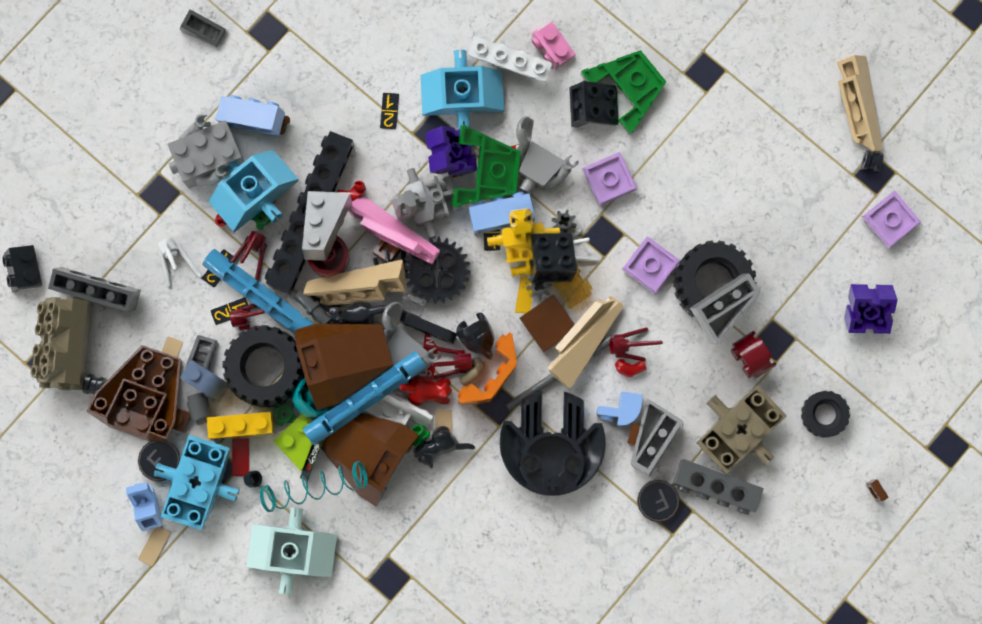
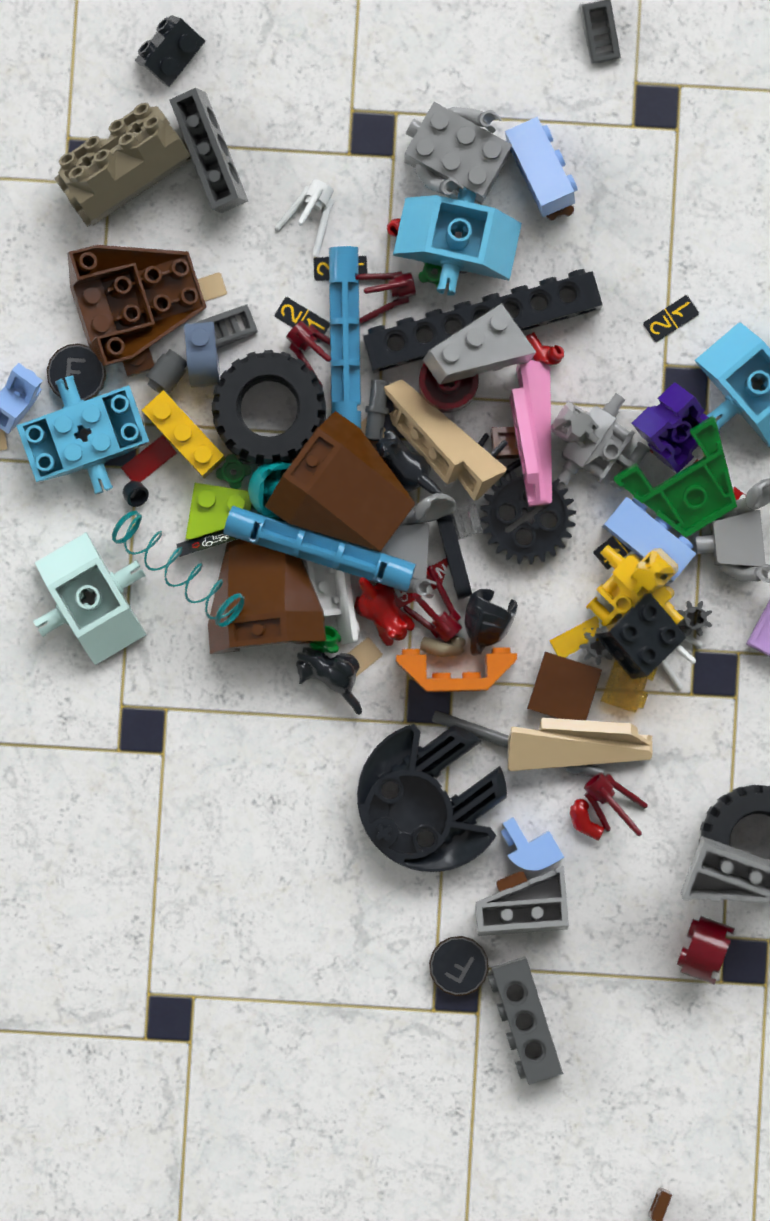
camera: 55 degrees right, 5 degrees up
(92, 383) = (103, 233): black wheel -> none
(651, 265) = (722, 754): lavender plate -> none
(758, 418) = (640, 1006): dark tan slope -> none
(841, 410) = (703, 1105): black tyre -> none

